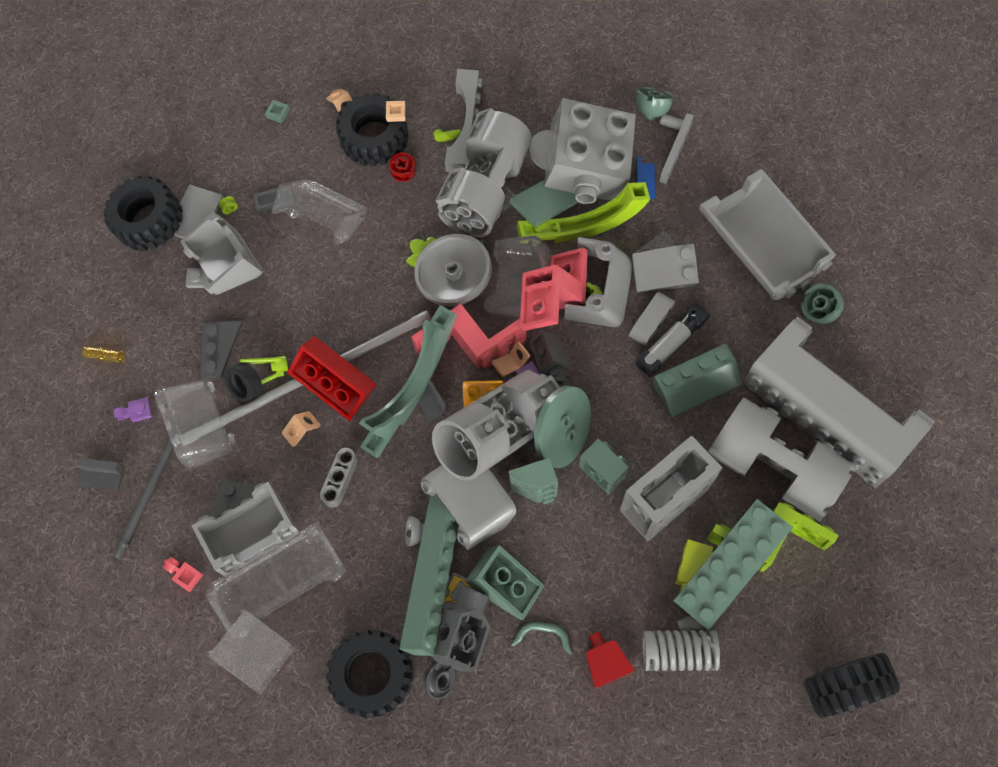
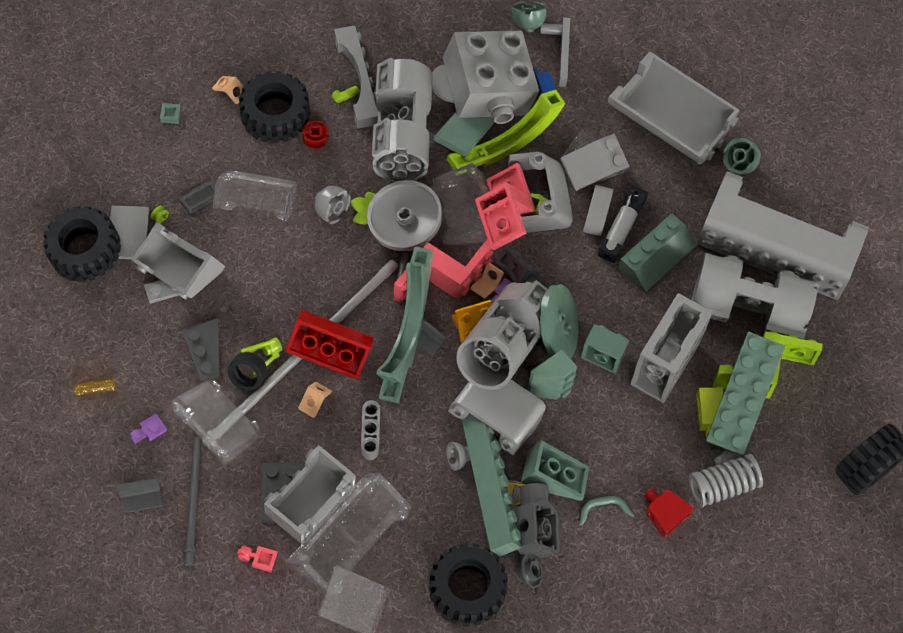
camera: 30 degrees left, 5 degrees down
(389, 238) = (331, 203): none -> light grey cylinder
(395, 111) = (297, 83): light nougat plate -> none

